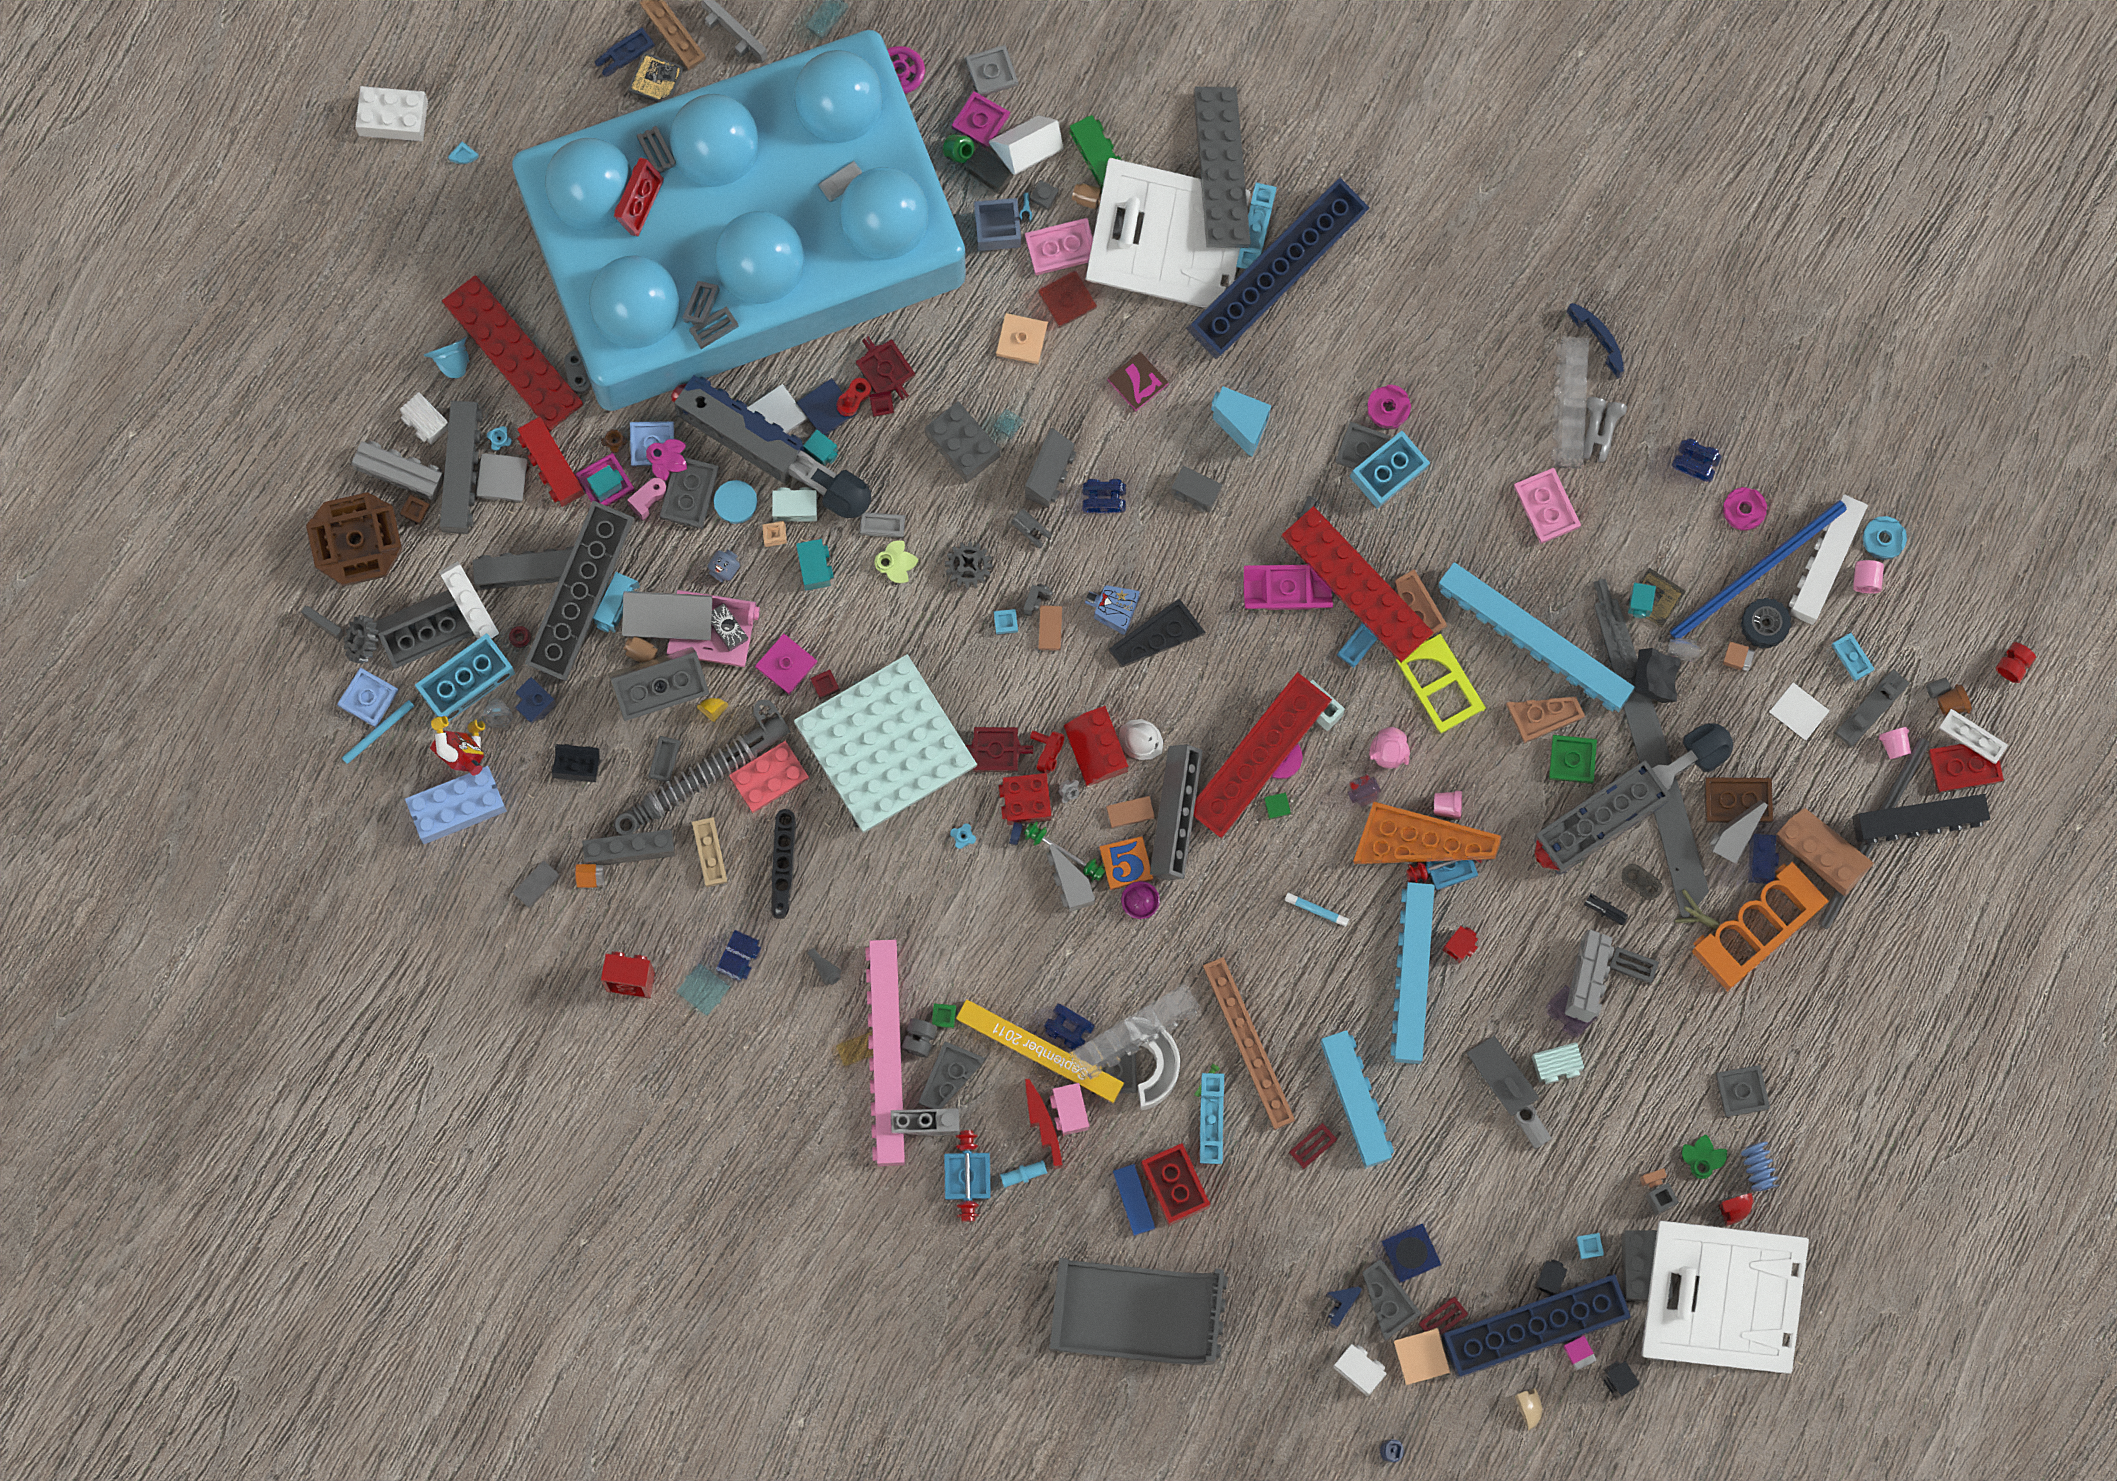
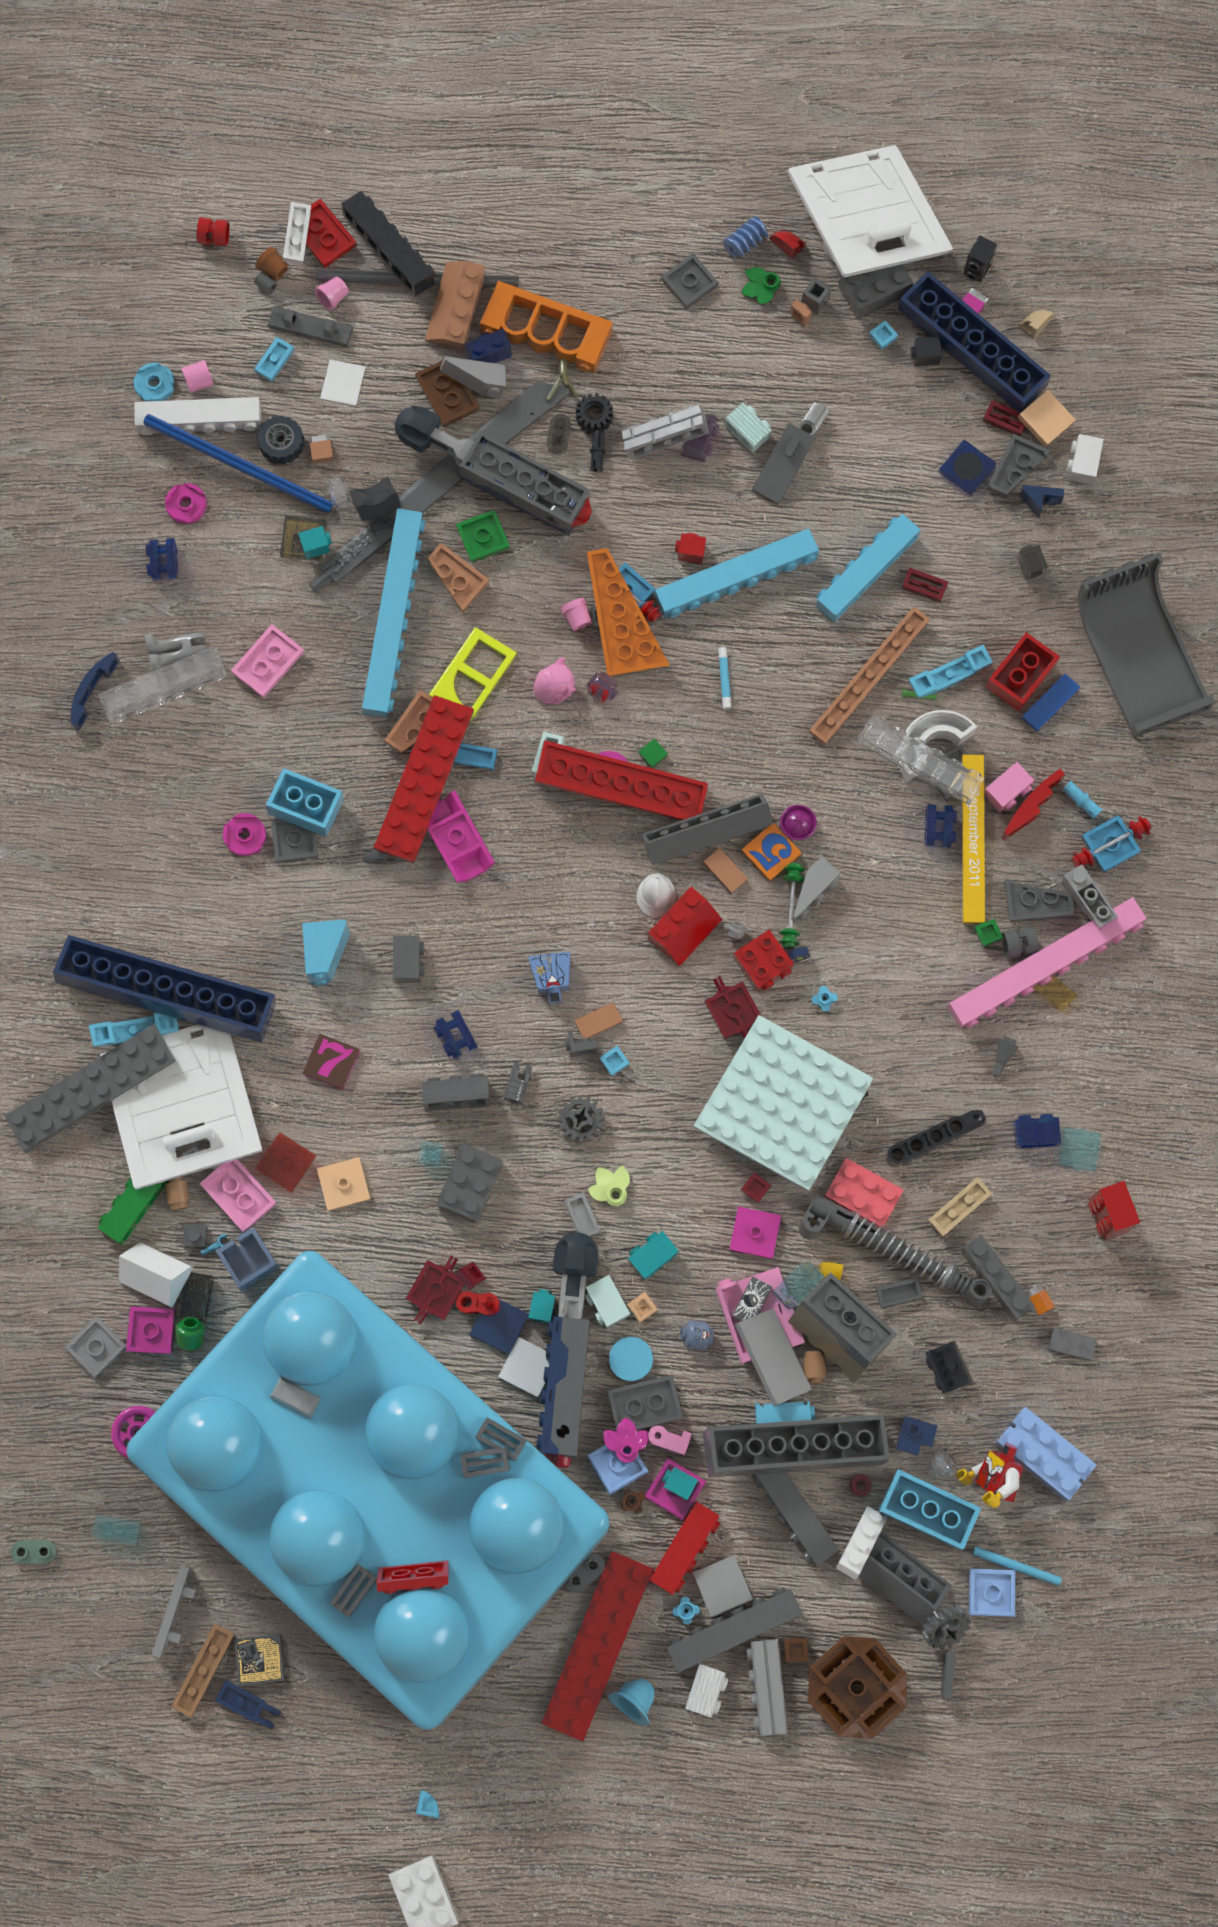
camera: 115 degrees left, 0 degrees up
(718, 672) = (797, 1285): none -> clear light blue hinge
(1047, 760) = (721, 959): red piece -> none
(1163, 631) = (553, 924): black wing -> none
(1282, 1258) = (1032, 562): none -> clear smoke brick
(1392, 1450) = (1133, 406): dark blue tile -> none
(1613, 966) = (629, 392): dark grey tile -> none
(1646, 939) = (594, 402): none -> black tyre

